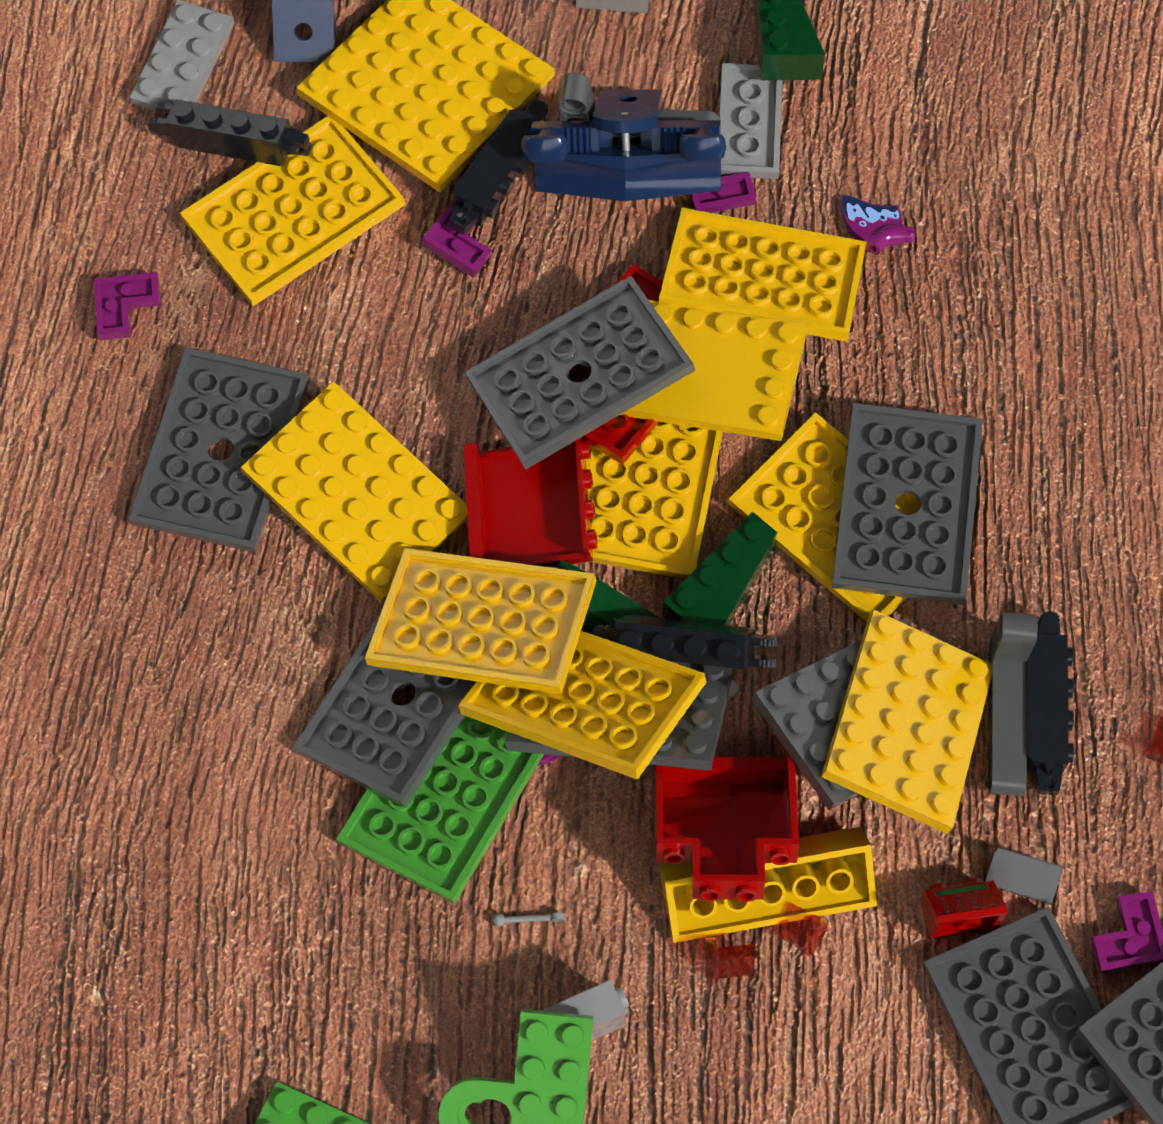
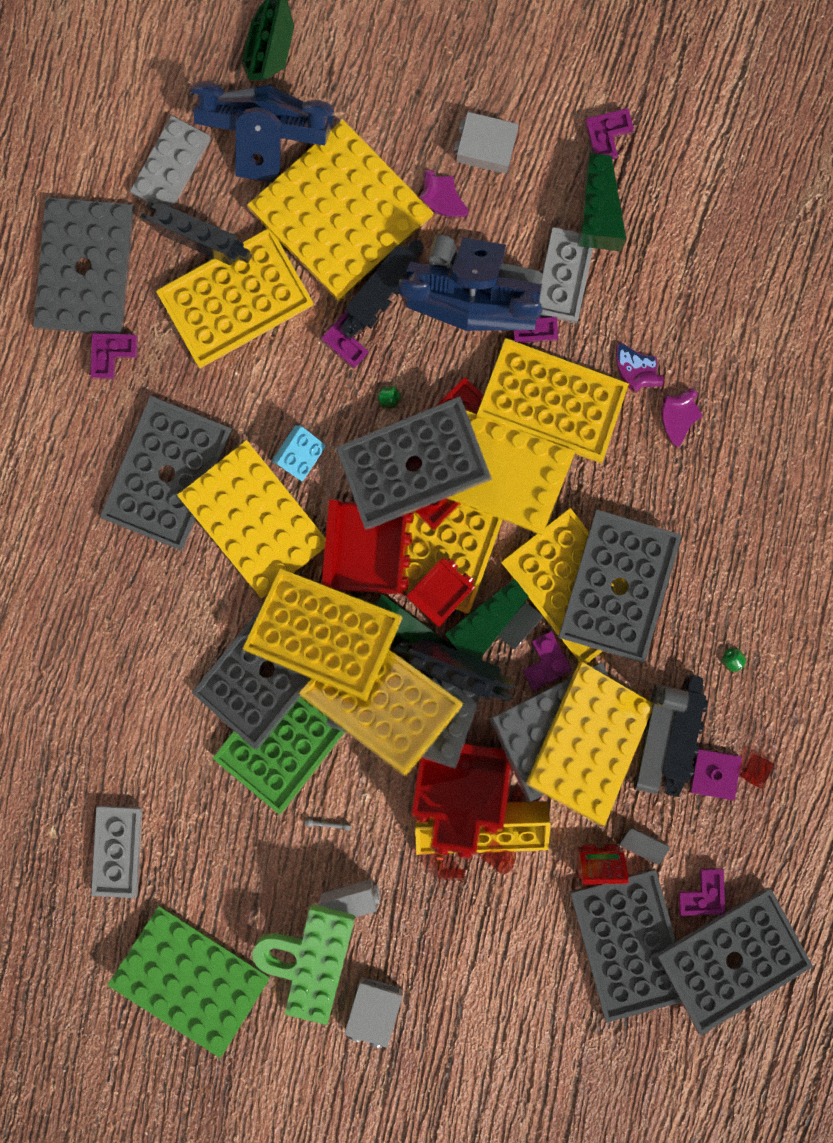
camera: 10 degrees right, 20 degrees up
(81, 243) = (90, 300): none -> dark grey plate
(201, 1005) = (117, 851): none -> light grey plate
(411, 392) = (299, 452): none -> medium azure bracket
(529, 308) = (389, 396): none -> green piece
(563, 48) = (442, 196): none -> magenta arm
(648, 546) = (441, 591): none -> red panel
(772, 586) = (520, 625): none -> dark grey slope
(829, 629) = (552, 663): none -> magenta plate
(946, 274) = (679, 414): none -> magenta arm
(1099, 591) = (734, 659): none -> green piece
(1109, 756) = (715, 774): none -> magenta plate

